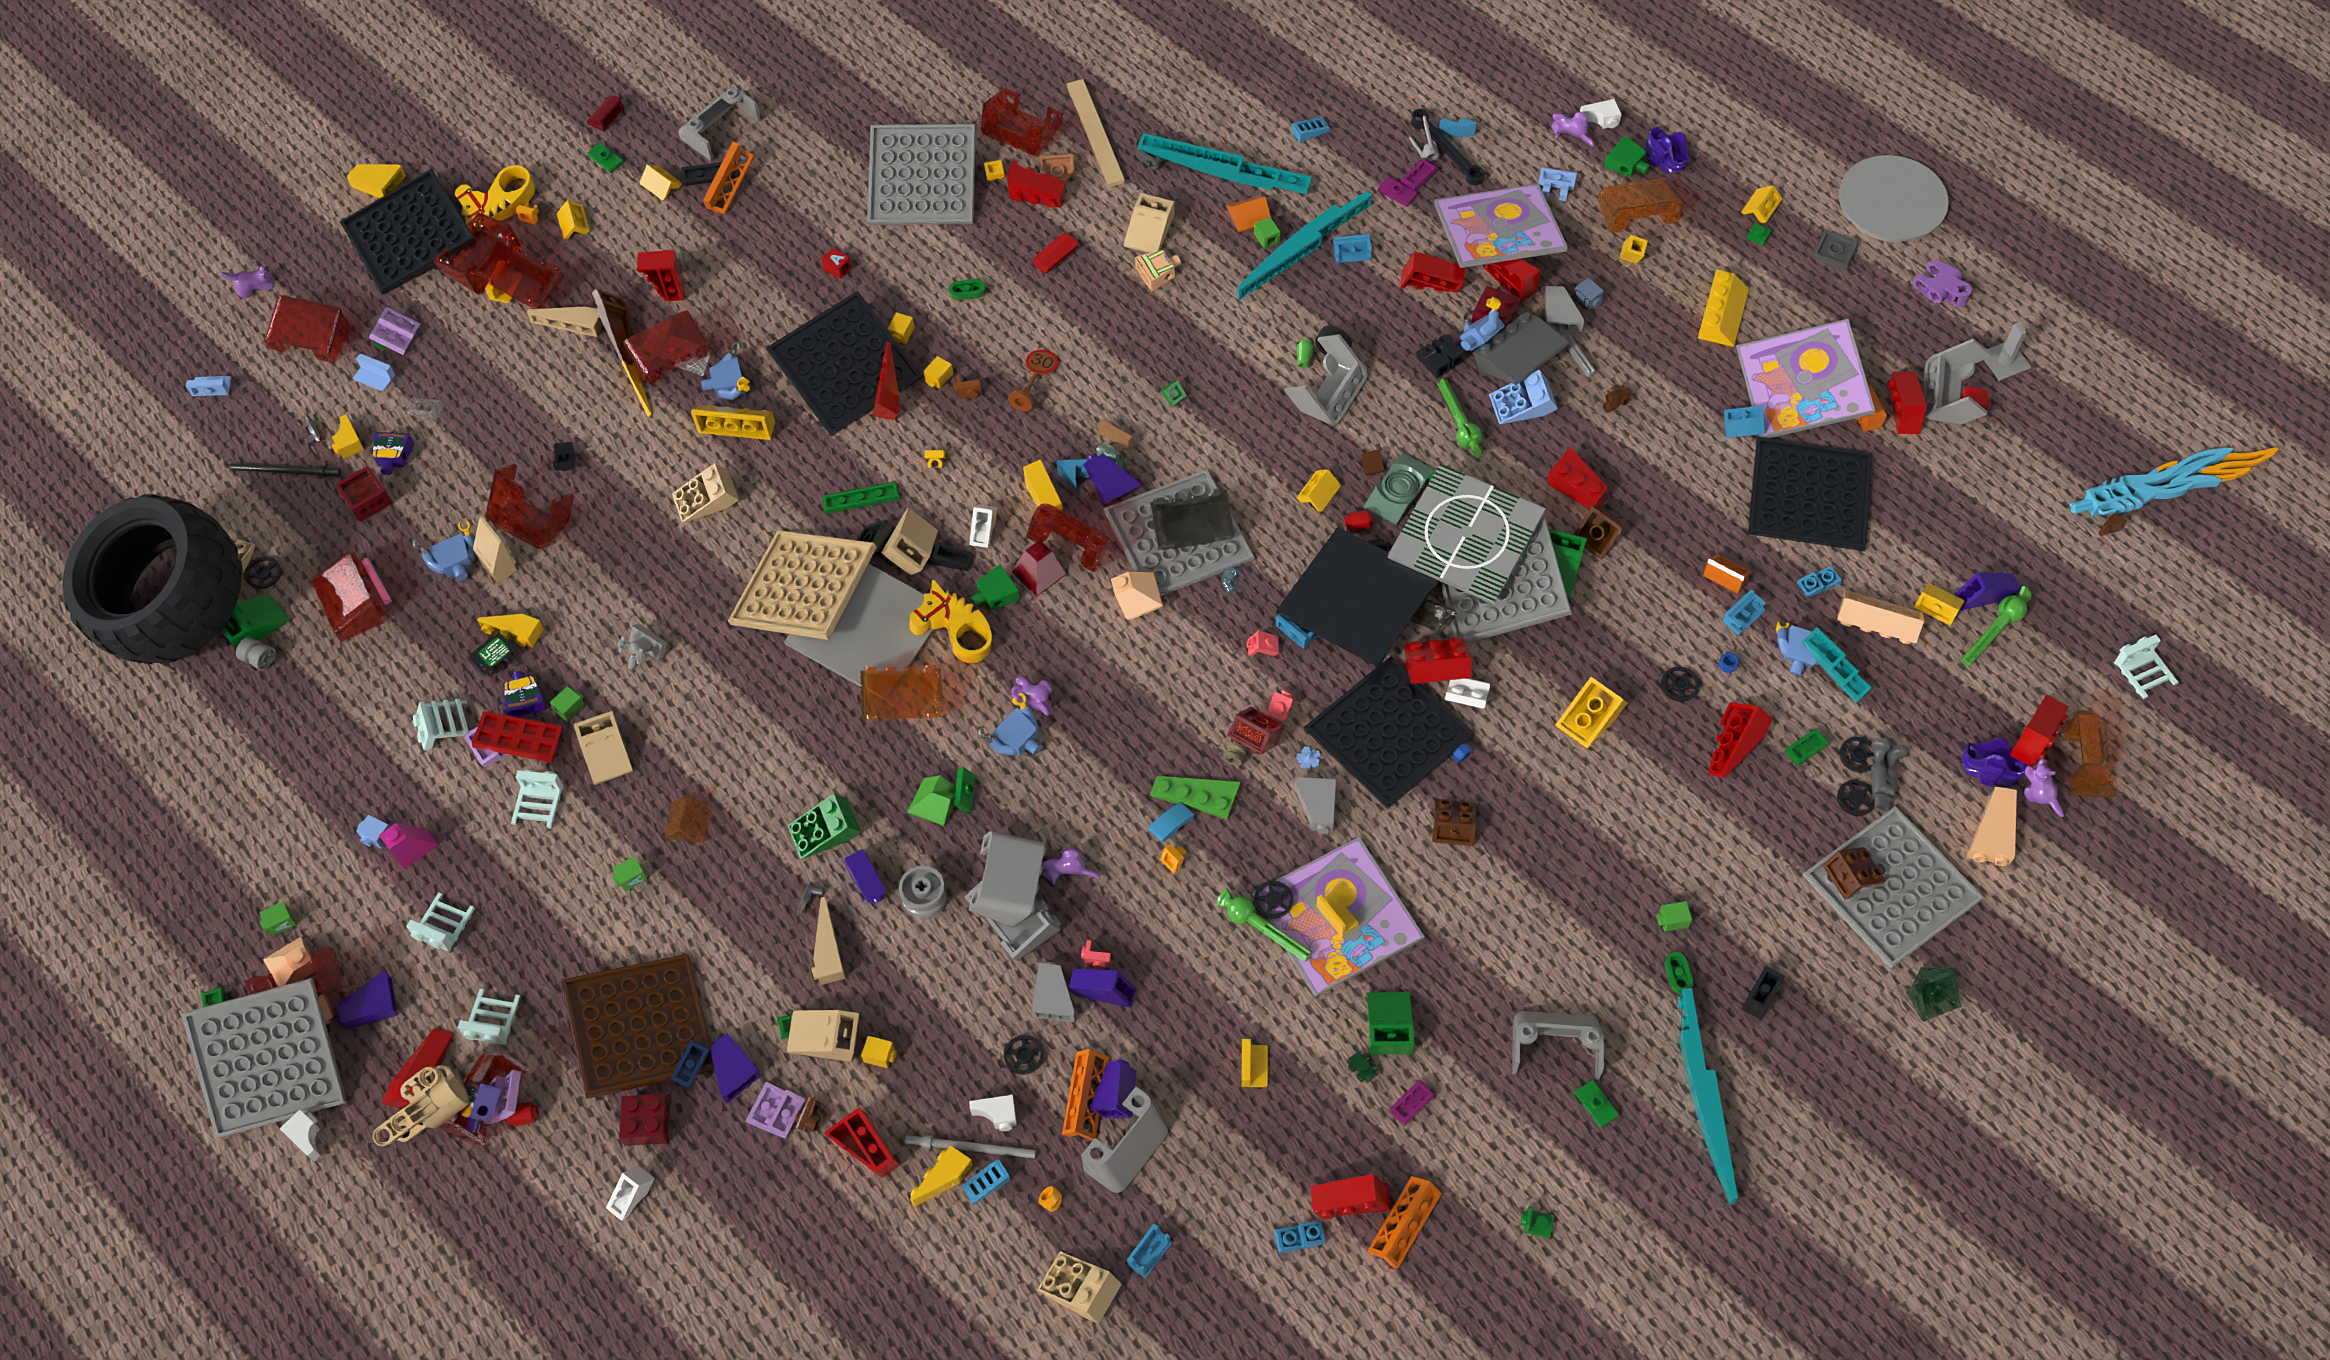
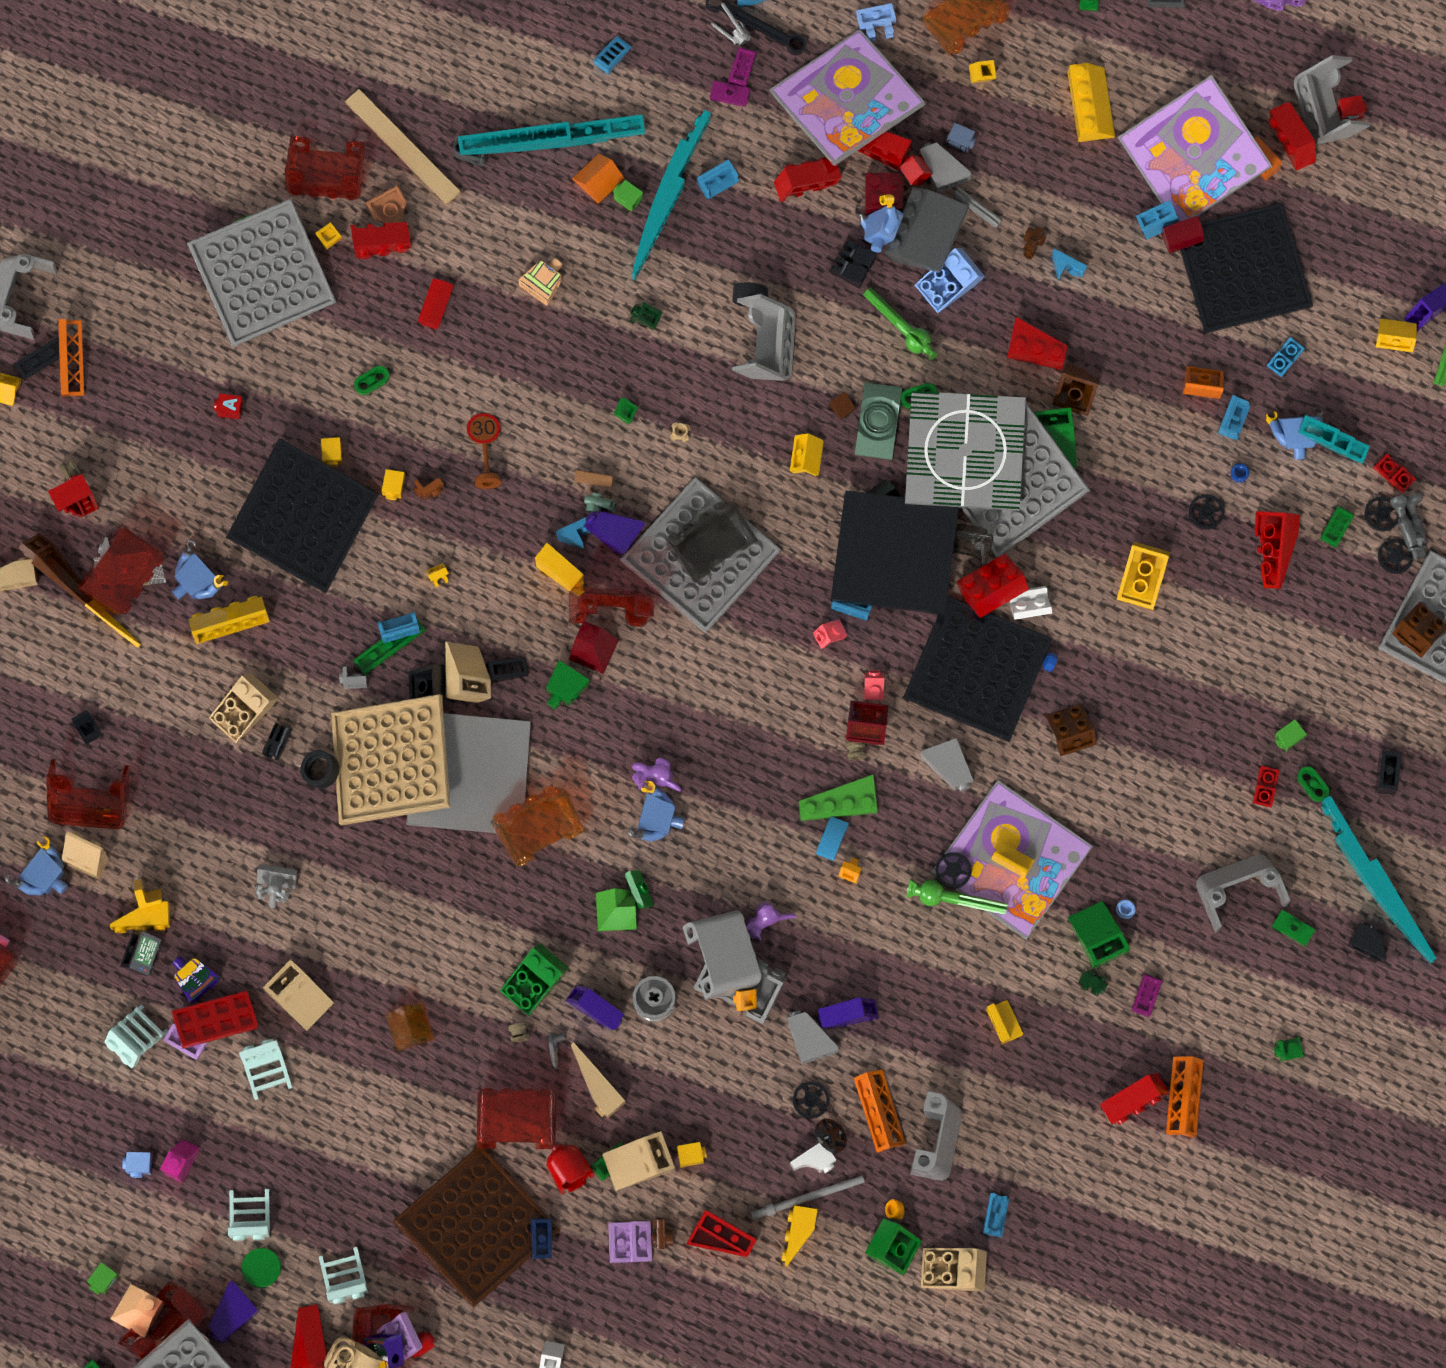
camera: 30 degrees left, 15 degrees up
(423, 975) = (261, 1268): none -> green tile
(521, 604) = (146, 899): none -> yellow panel
(567, 703) = (239, 967): bright green brick -> none
(628, 874) = (388, 1098): bright green brick -> none
(644, 1119) = (528, 1301): dark red piece -> none
(716, 533) = (276, 741): none -> black arm
(732, 1068) = (575, 1223): dark purple slope -> none
(733, 940) = (516, 1117): none -> clear red windscreen
(743, 577) = (310, 759): none -> black tyre
(754, 1011) = (568, 1168): none -> red cylinder
(781, 868) = (518, 1032): none -> dark tan wheel
(810, 511) = (352, 682): none -> light grey bracket
(874, 484) = (398, 627): none -> dark azure hinge
(887, 393) = (359, 529): red wedge -> none
(956, 614) = (543, 726): yellow animal -> none
(982, 525) = (520, 626): white arch -> none
(997, 1183) = (845, 1206): dark azure slope -> none
(1009, 929) = (745, 999): none -> light orange tile
(1023, 1095) = (831, 1135): none -> black wheel
(1029, 1234) = (893, 1246): none -> green slope
(1096, 959) = (833, 991): coral bracket -> none
(1113, 1089) = (905, 1097): dark purple slope -> none
(1137, 593) = (696, 634): light nougat slope -> none
(1149, 223) = (511, 235): tan slope -> none
(1216, 425) = (680, 427): none -> tan plate
(1226, 580) = (766, 582): clear light blue arm -> none
(1233, 327) = (645, 315): none -> dark green bracket
(1299, 1237) = (1108, 1147): dark azure slope -> none
(1304, 353) = (726, 314): bright green cone -> none
(1308, 758) = (919, 724): light blue plant -> none
(1358, 521) = (857, 472): red brick -> none
(1429, 1010) = (1125, 909): none -> light blue plate
(1534, 300) = (915, 170): none -> red brick
(1628, 955) = (1266, 786): none -> red slope
(1640, 425) = (1062, 262): none -> dark azure slope
(1670, 1151) = (1367, 941): none -> black slope
(1763, 440) = (1182, 234): none -> dark red brick
(1880, 617) = (1351, 370): light nougat slope -> none
(1886, 723) = (1393, 473): none -> red slope
(2006, 357) = (1363, 48): light grey piece -> none

